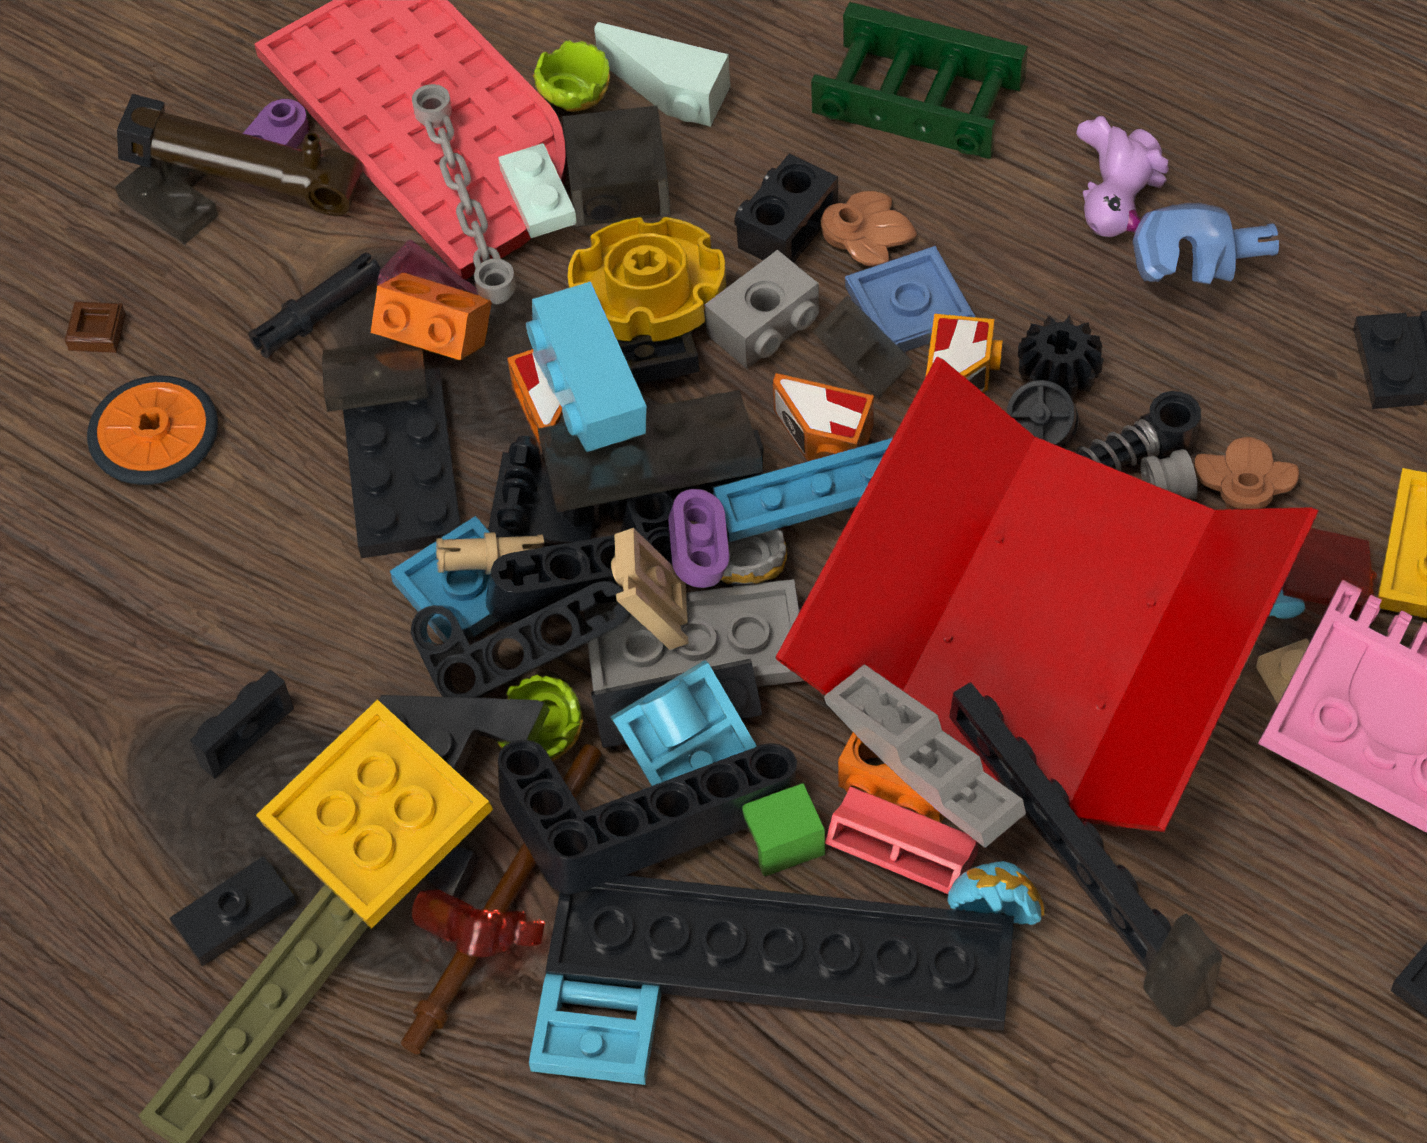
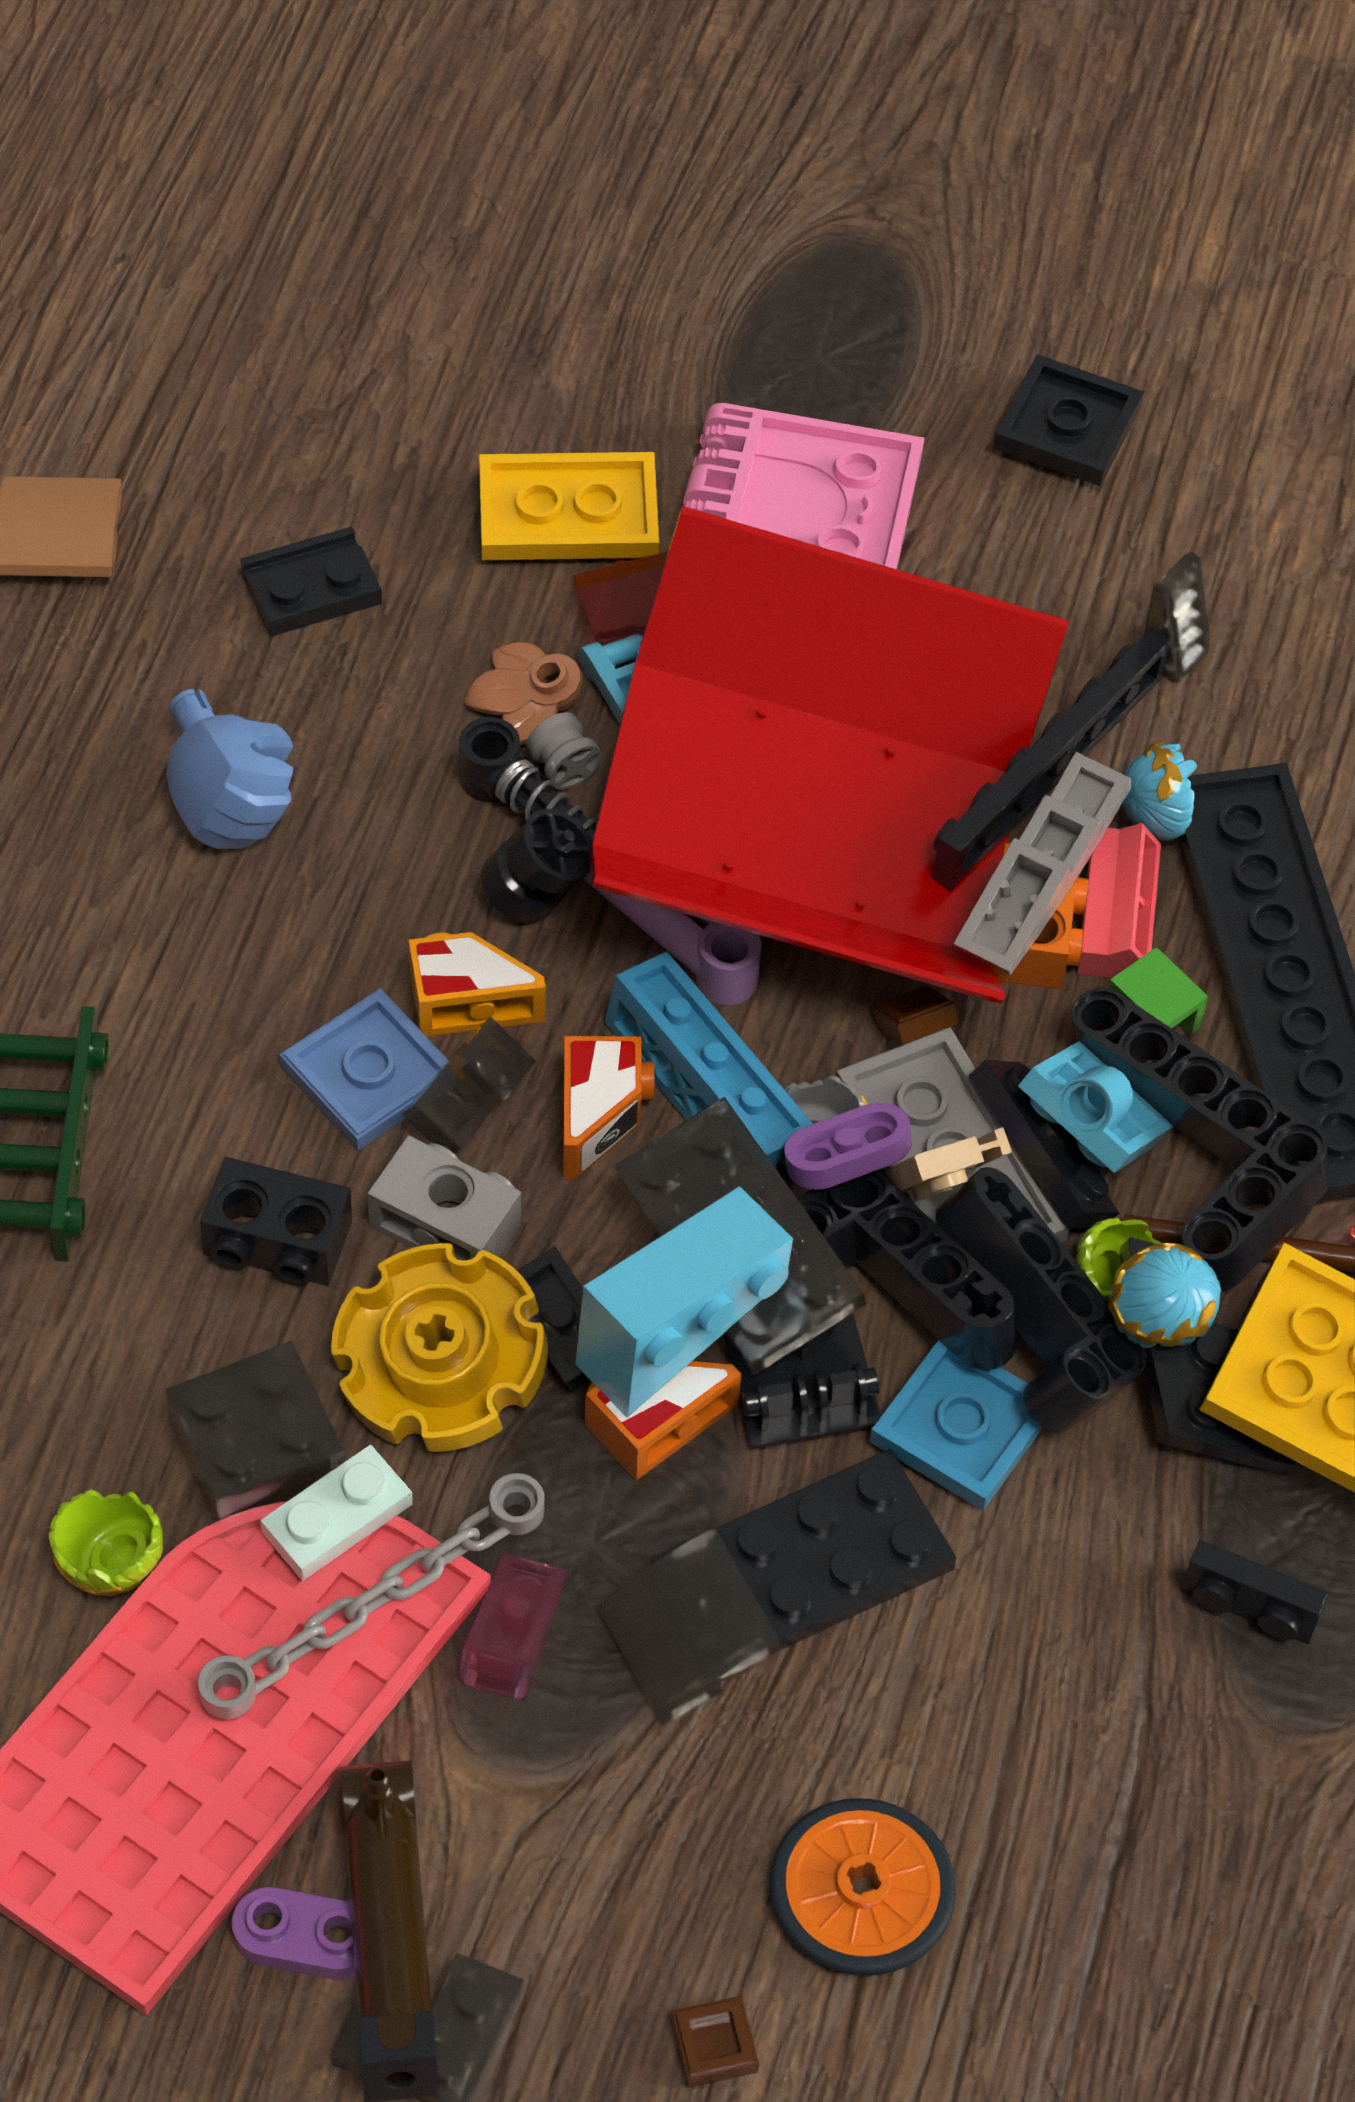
camera: 115 degrees left, 0 degrees up
(301, 314) = (608, 1755): black pin -> none
(431, 316) = (588, 1575): orange brick -> none
(479, 708) = (1165, 1296): none -> medium azure hair
(480, 552) = (936, 1376): tan pin -> none
(670, 74) = (68, 1427): light aqua slope -> none
(866, 227) = (266, 1132): nougat plate -> none
(1061, 355) = (423, 884): black gear -> none
(1126, 168) = (107, 872): lavender animal -> none

